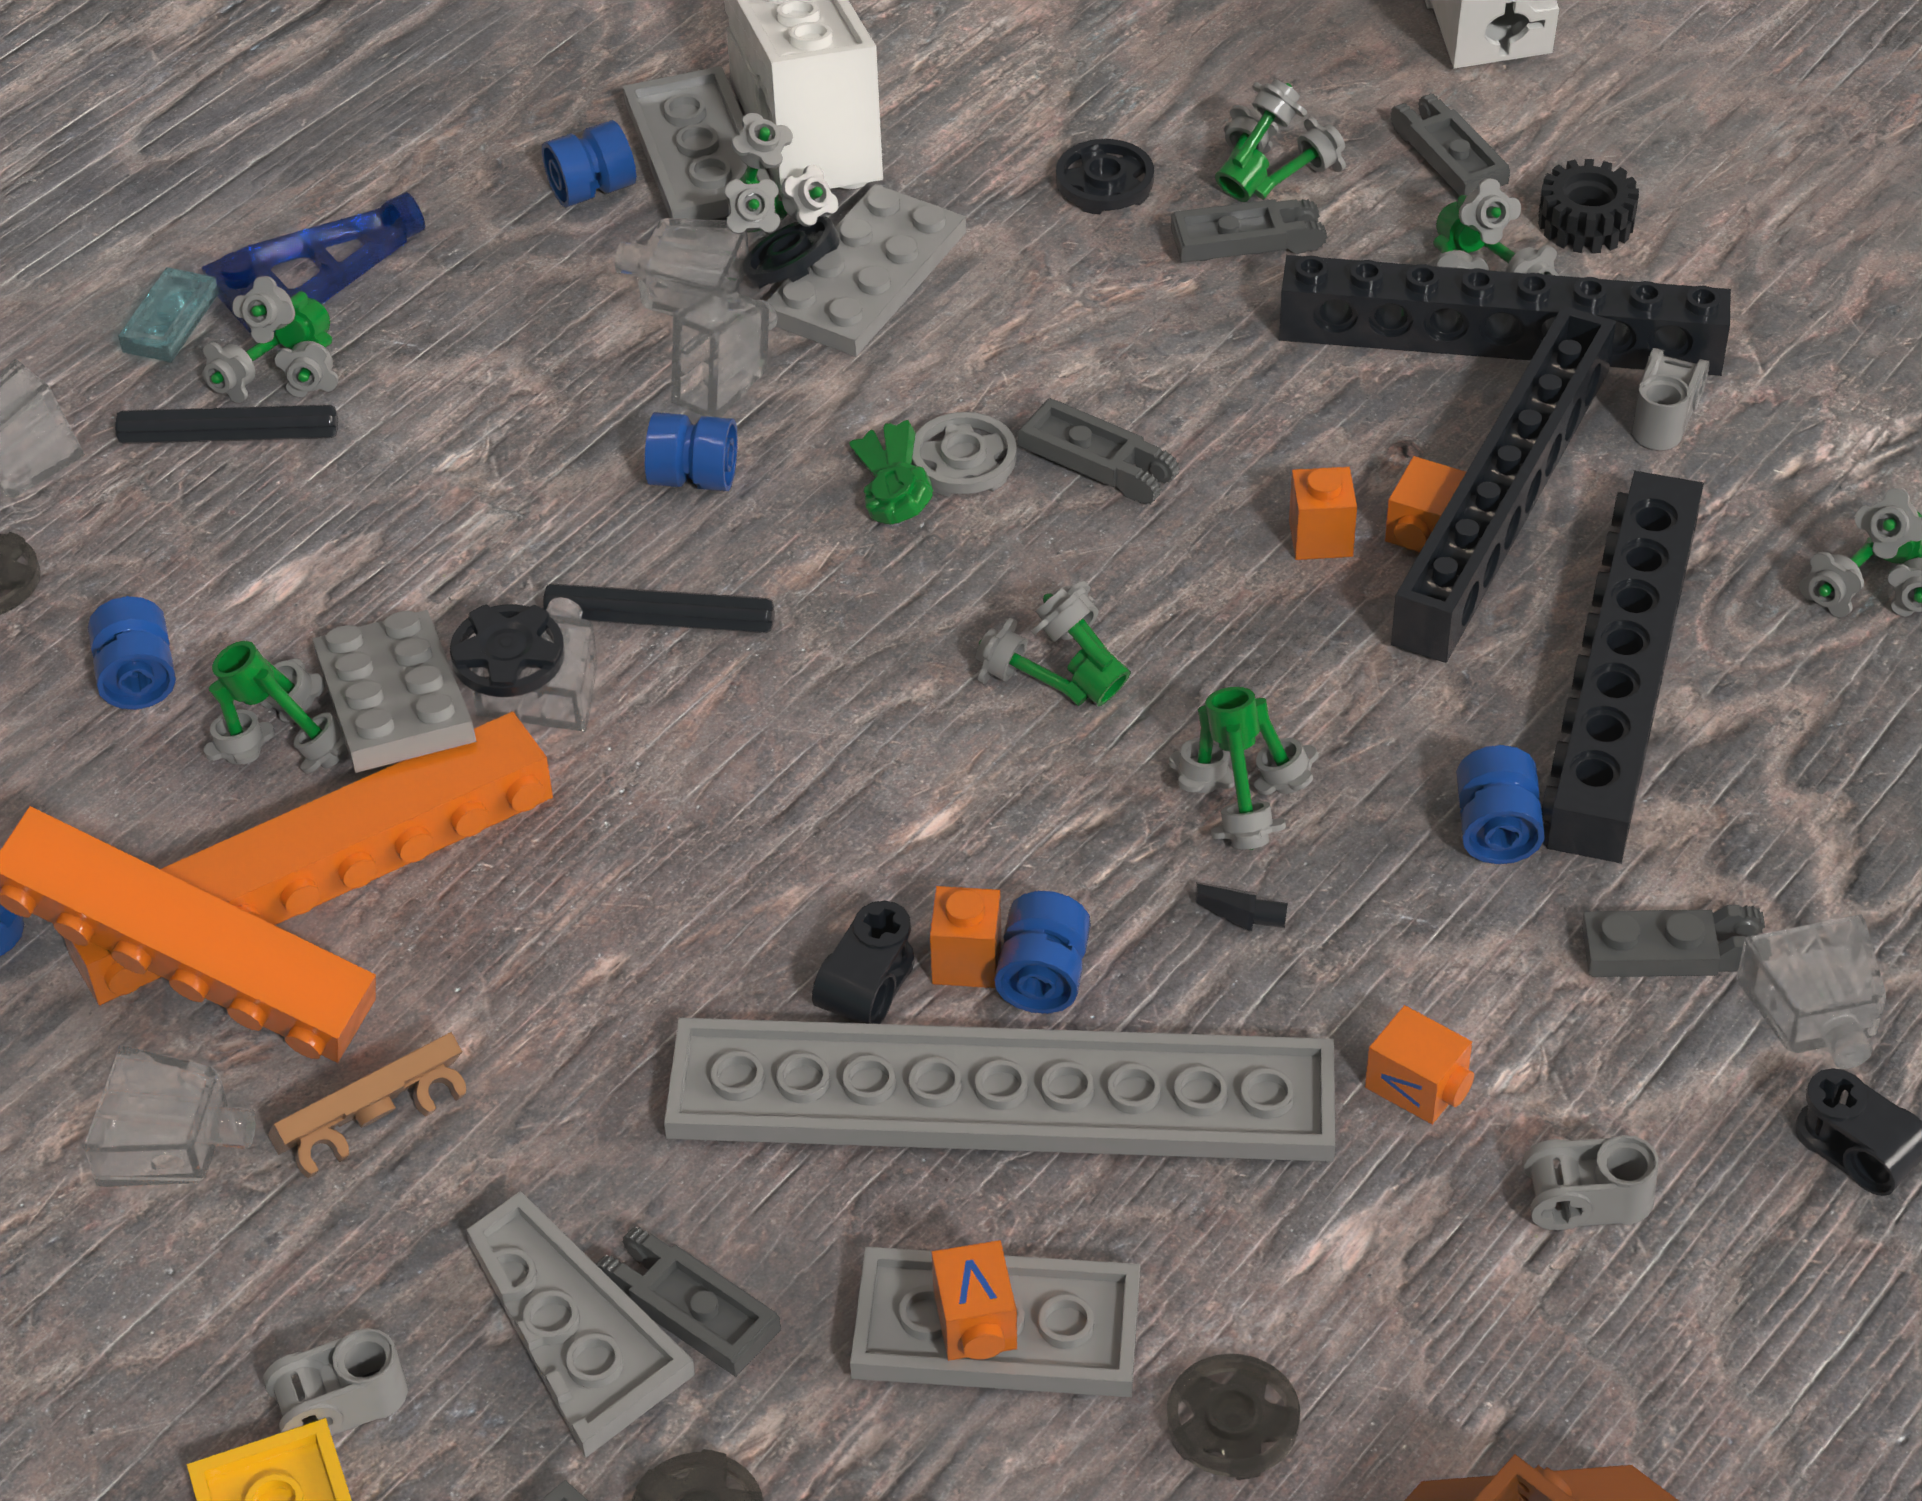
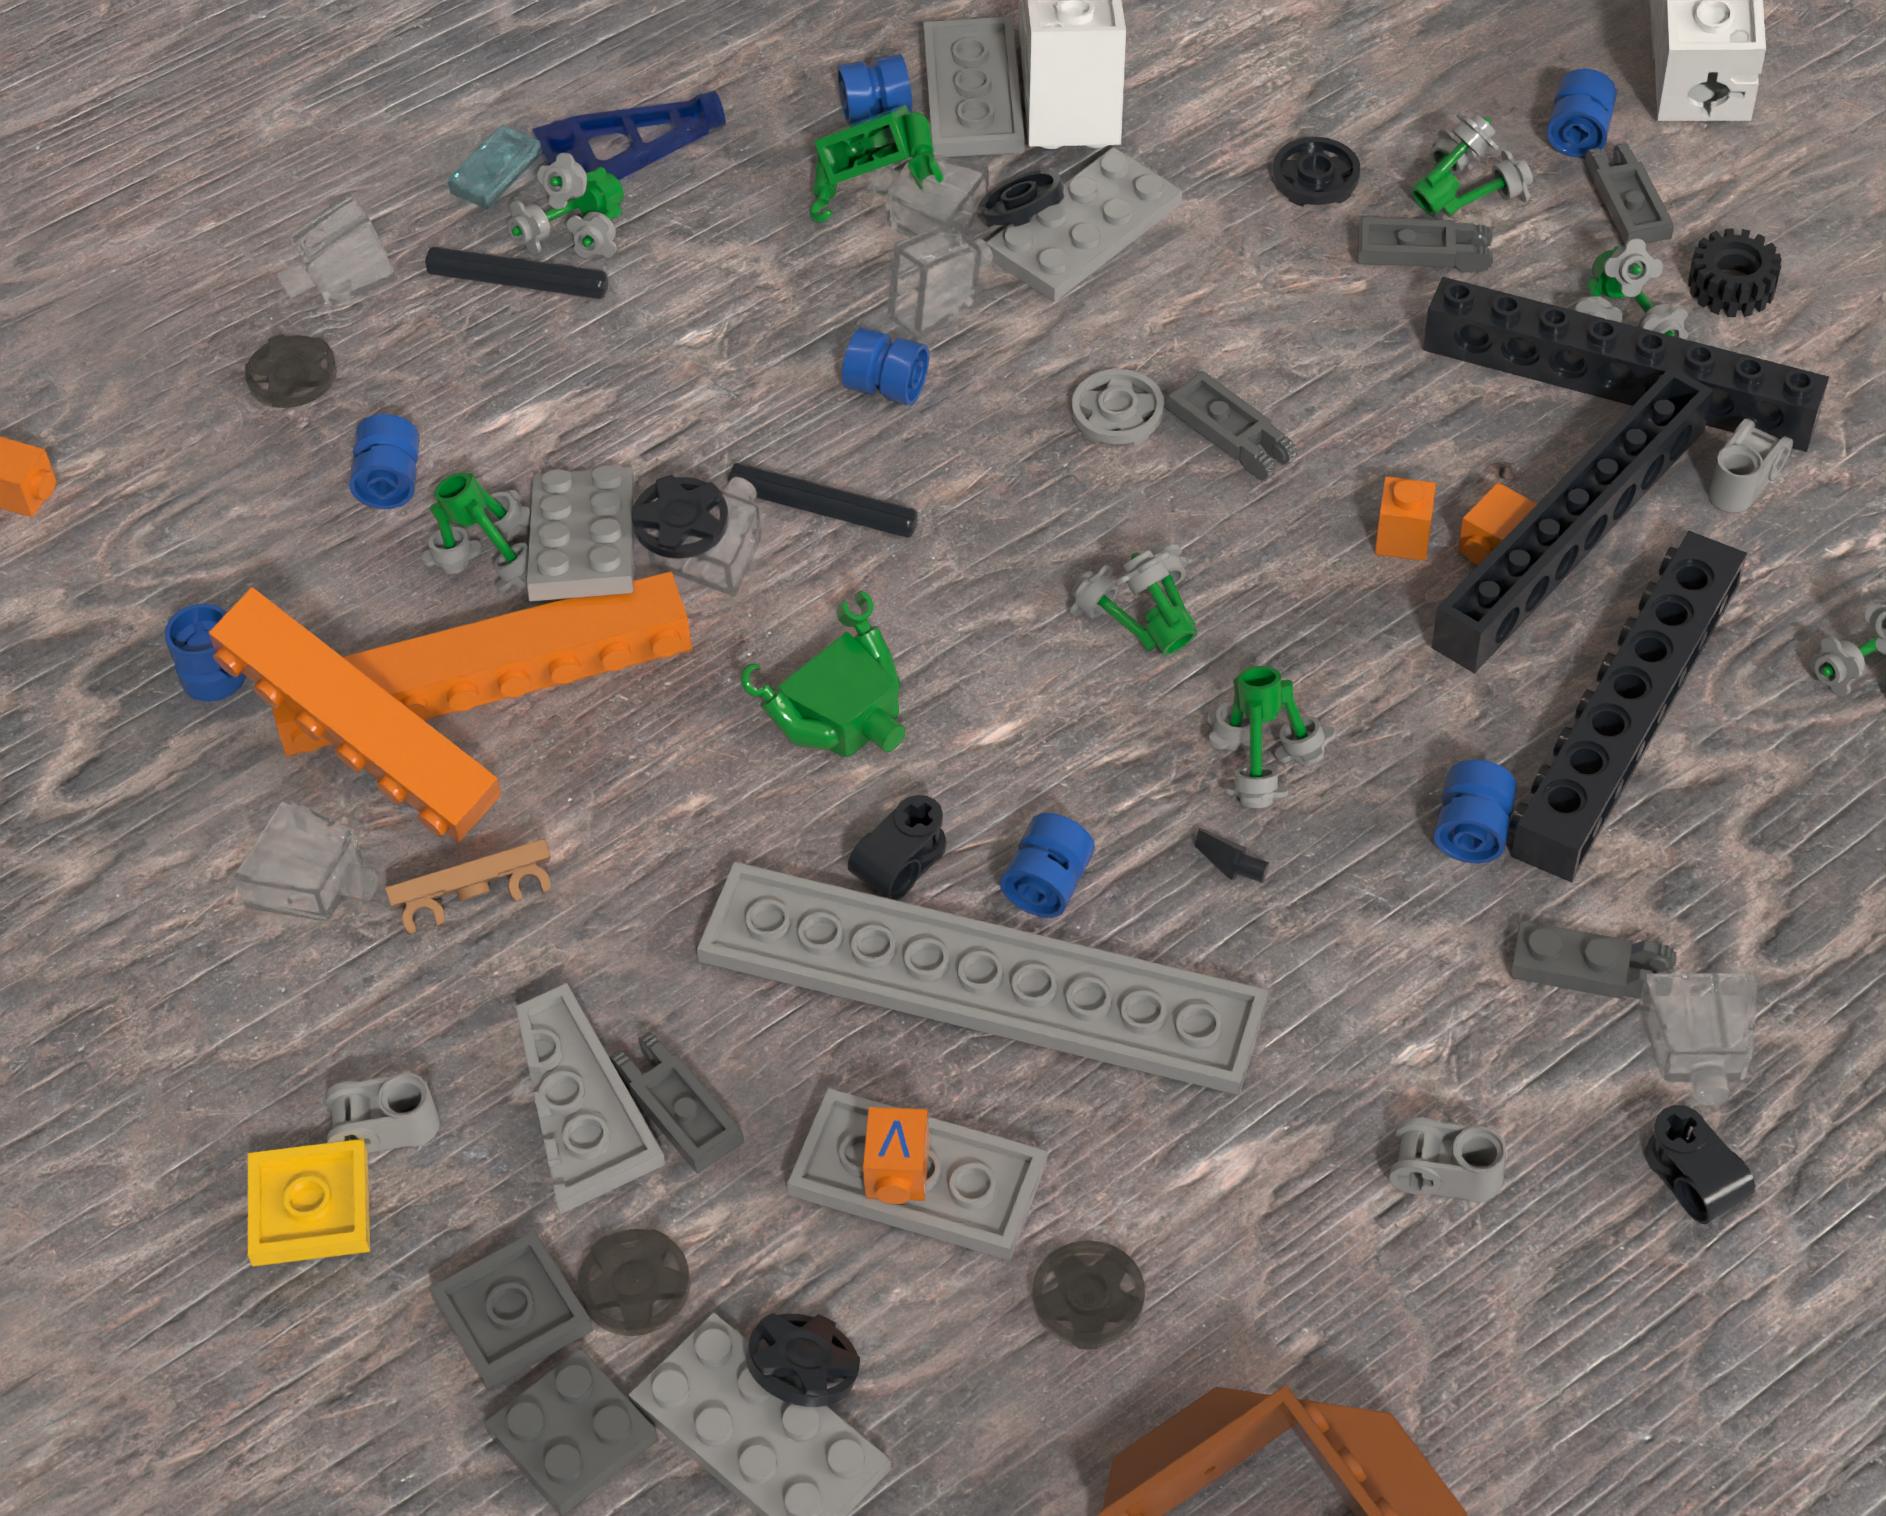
camera: 15 degrees right, 5 degrees up
(608, 220) = (870, 146): none -> green torso
(748, 809) = (841, 693): none -> green torso
(756, 203) = (1003, 150): light grey plant -> none
(898, 486) = (1052, 428): green piece -> none
(965, 936) = (986, 837): orange brick -> none
(1375, 69) = (1581, 112): none -> blue wheel
(1419, 1065) = (1334, 1027): orange brick -> none

